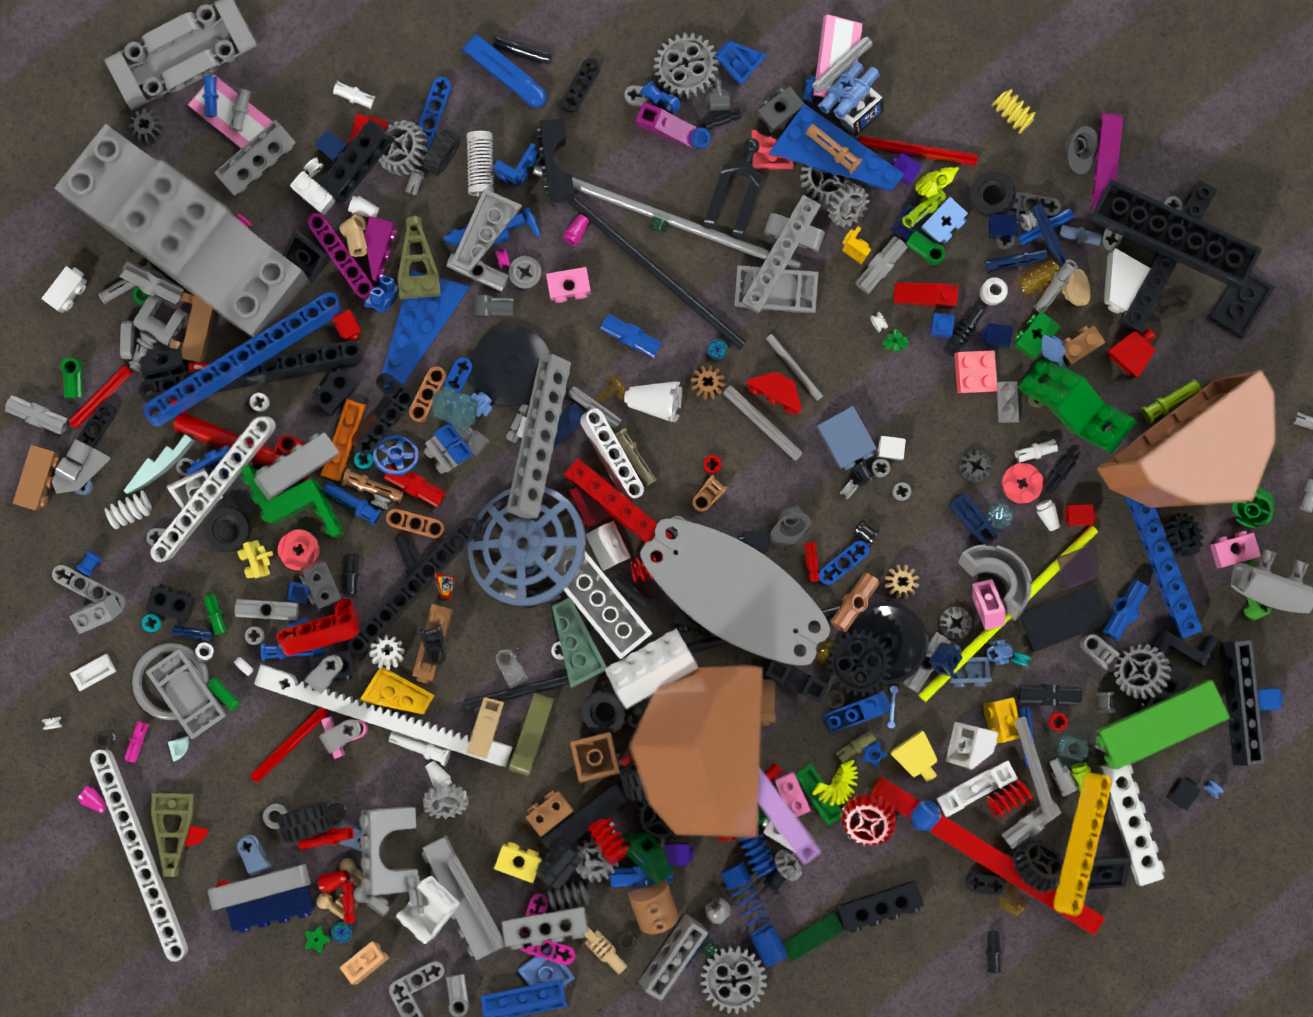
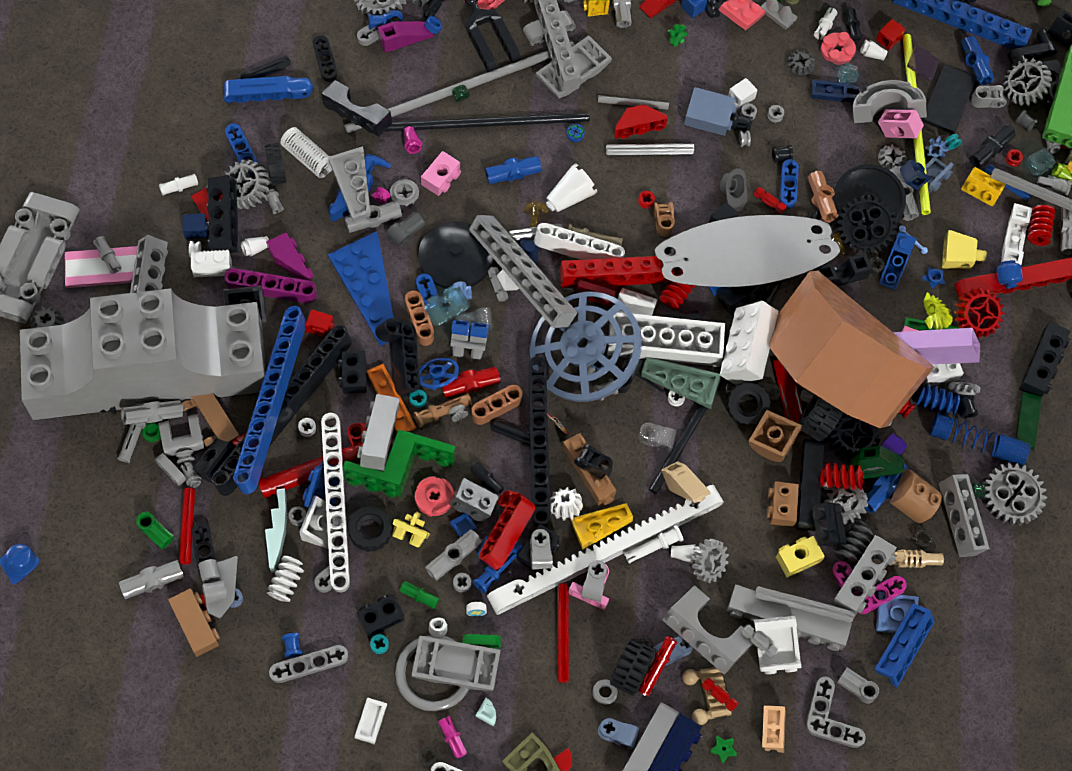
camera: 50 degrees left, 20 degrees down
(65, 289) = (90, 476): white brick -> none
(96, 613) = (333, 671): light grey brick -> none
(192, 633) = (416, 623): dark blue axle -> none
(210, 96) = (77, 264): blue axle -> none
(331, 880) = (692, 692): red cone -> none
(342, 932) = (735, 725): tile -> none
(353, 230) = (265, 262): tan piece -> none
(360, 508) = (449, 429): blue pin -> none
(377, 904) = (741, 676): light grey plate -> none
(382, 295) = (324, 283): blue hips -> none
(417, 286) = (341, 257): olive plate -> none
(515, 176) = (334, 138): blue bracket -> none
(531, 734) = (717, 466): olive beam -> none
(708, 389) = (591, 154): medium nougat gear -> none
(717, 910) = (955, 460): light grey piece -> none
(856, 746) = (919, 281): olive pin -> none
(878, 322) = (655, 33): white bush -> none
(901, 574) = (835, 161): tan gear -> none
(970, 745) = (983, 213): white slope -> none

